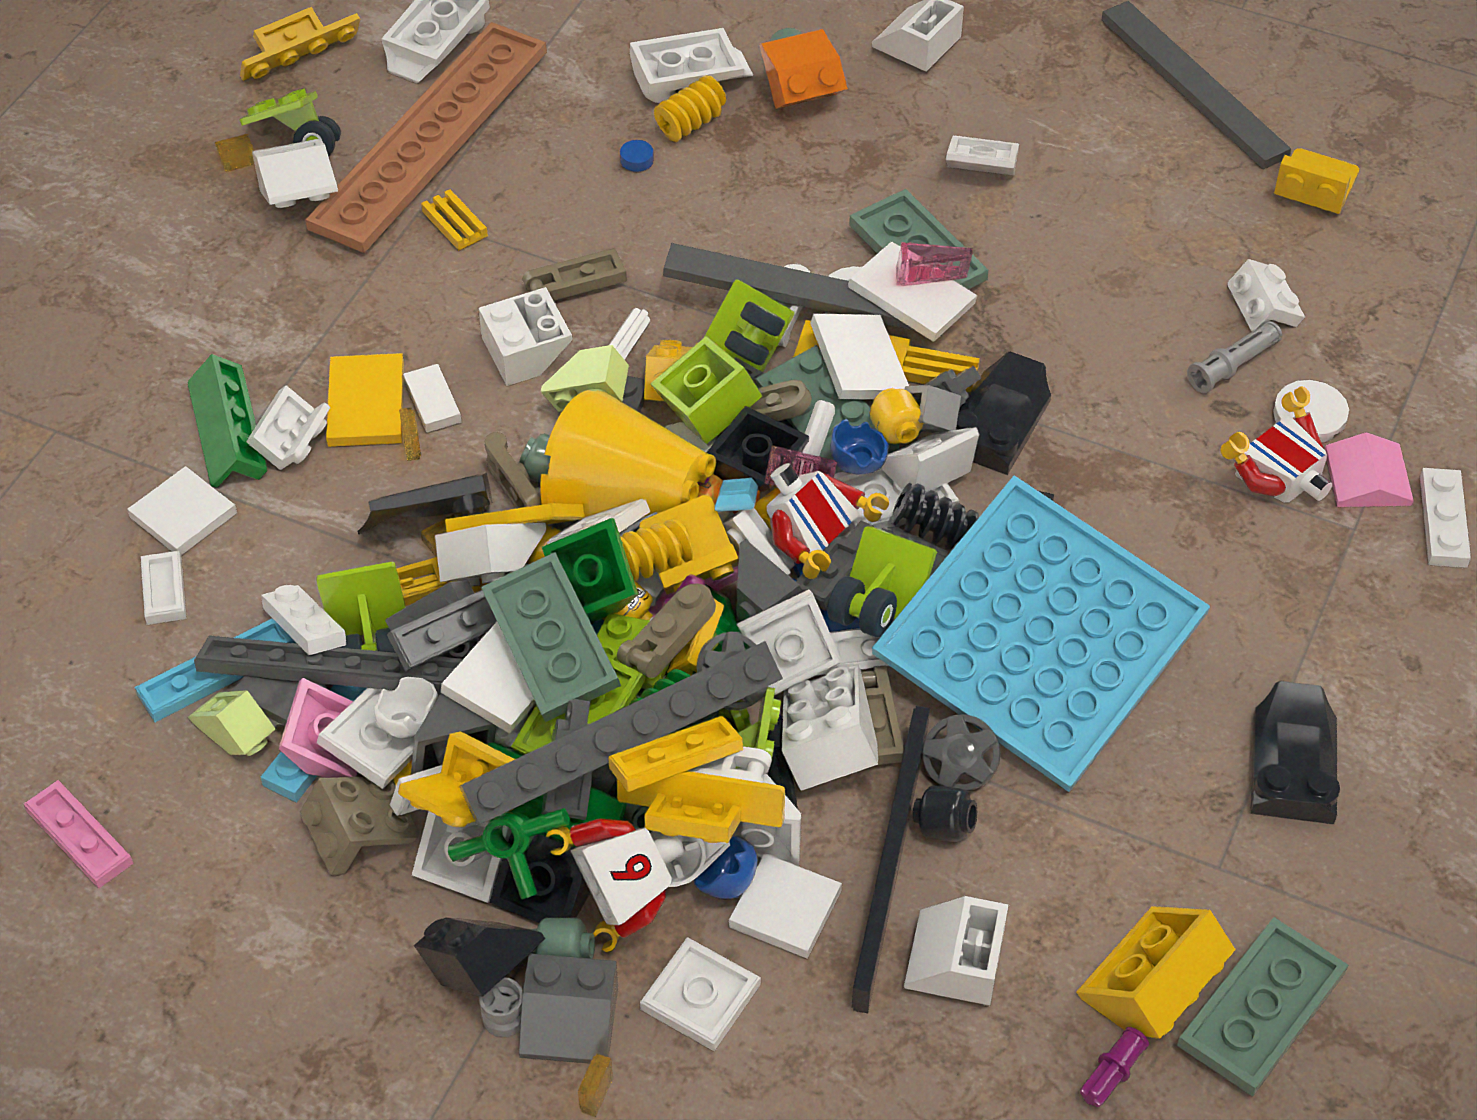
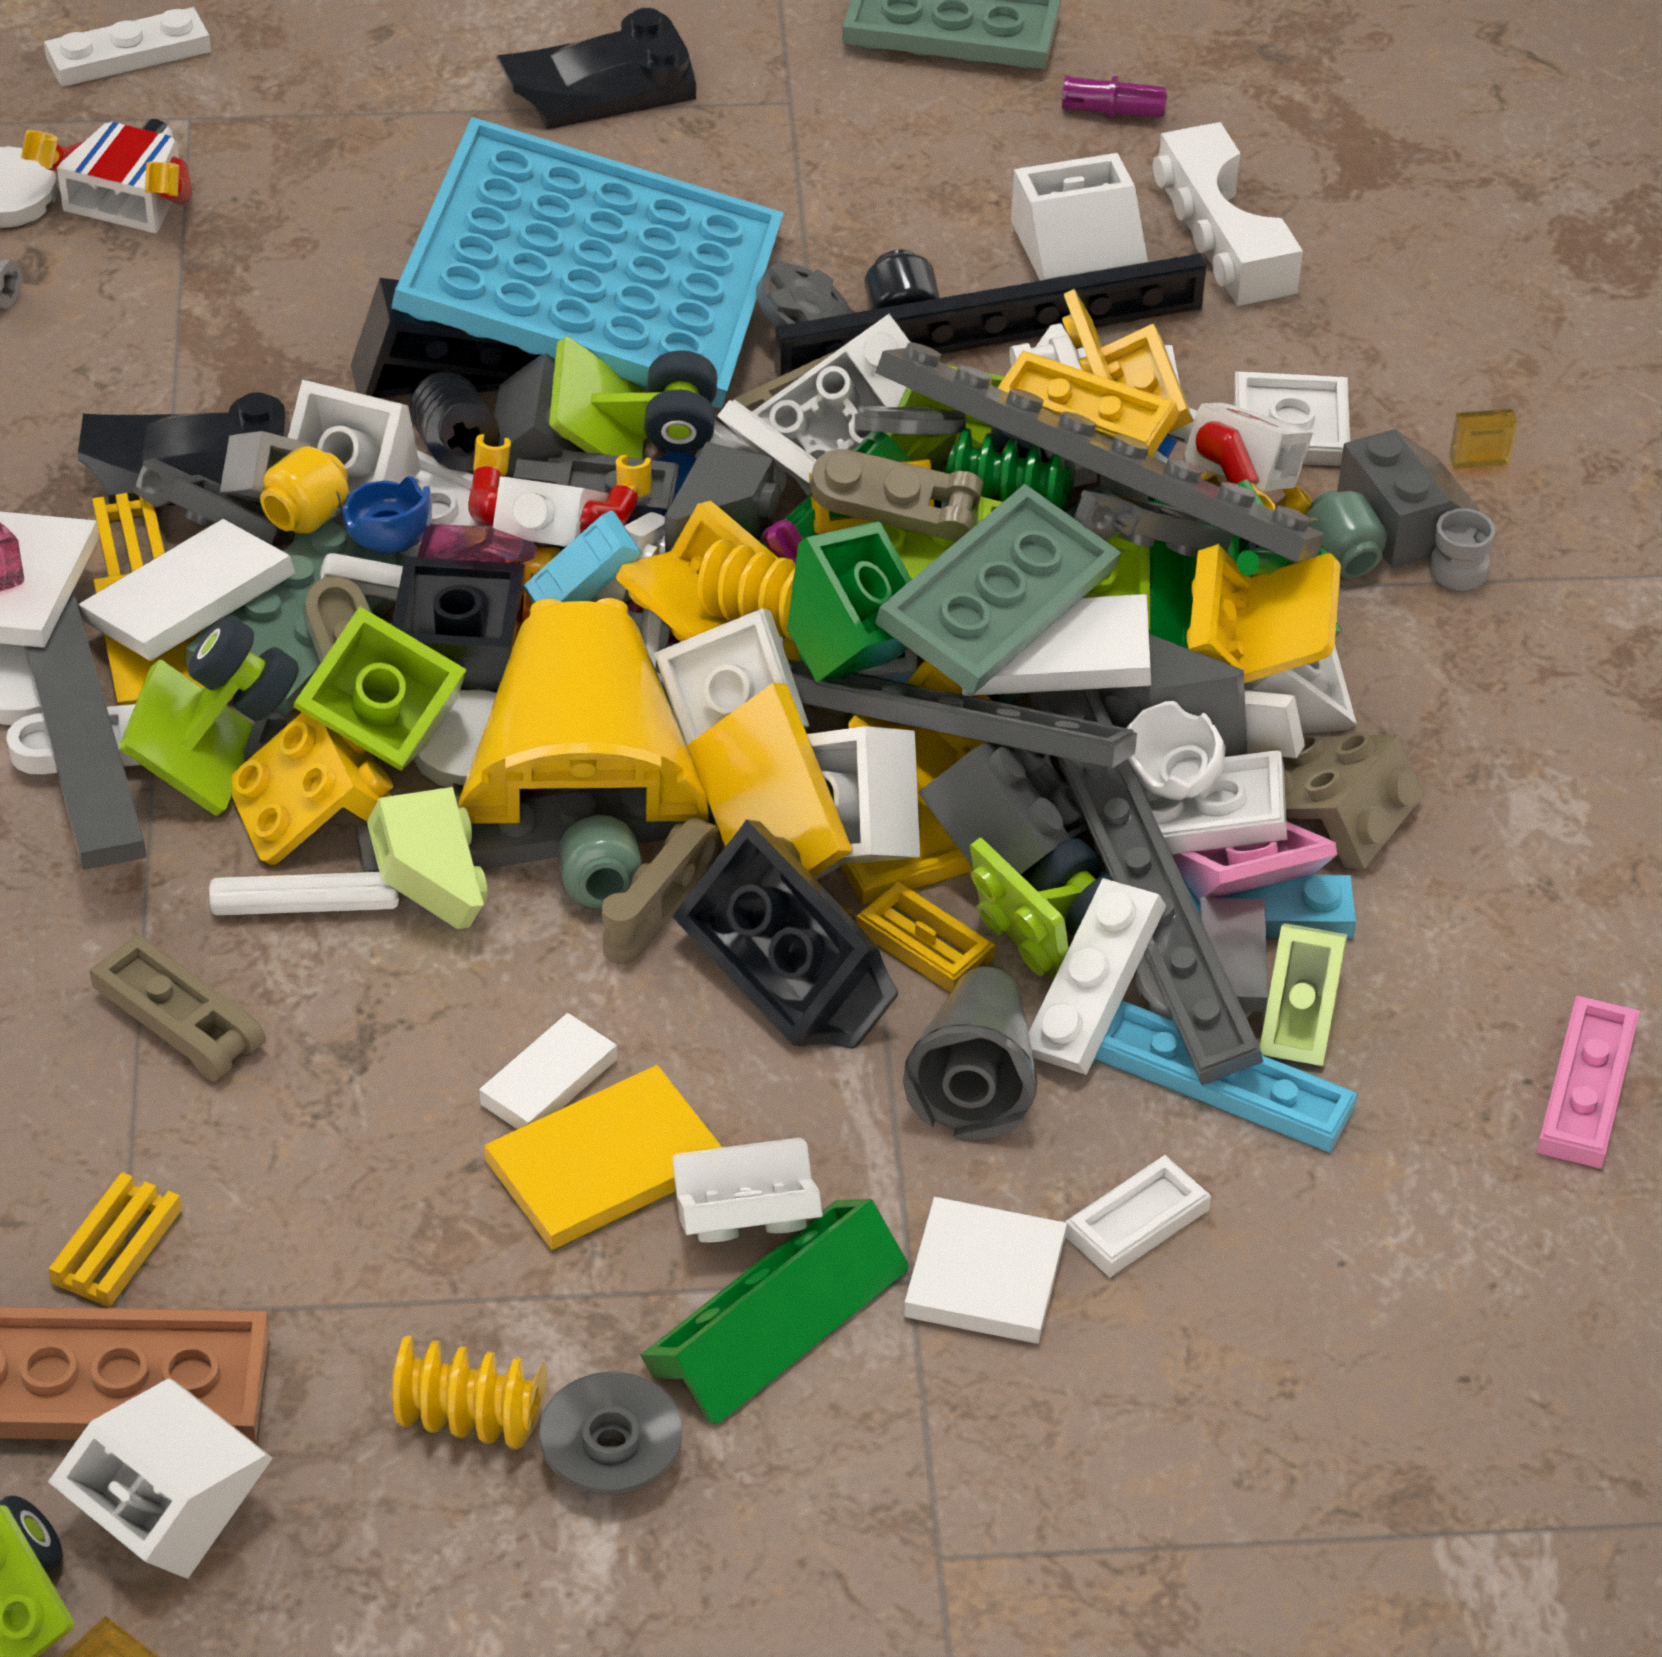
camera: 120 degrees left, 5 degrees down
(202, 331) = (605, 1411): none -> dark grey dish
(262, 288) = (466, 1395): none -> yellow piece
(293, 545) = (974, 1059): none -> dark grey cone
(410, 433) = (654, 1041): clear yellow tile -> none
(474, 952) = (1421, 569): black slope -> none
(524, 334) = (363, 992): white slope -> none
(877, 1047) = (1248, 252): none -> white arch
(1158, 969) = (974, 90): yellow slope -> none
(1368, 472) = (84, 109): bright pink slope -> none

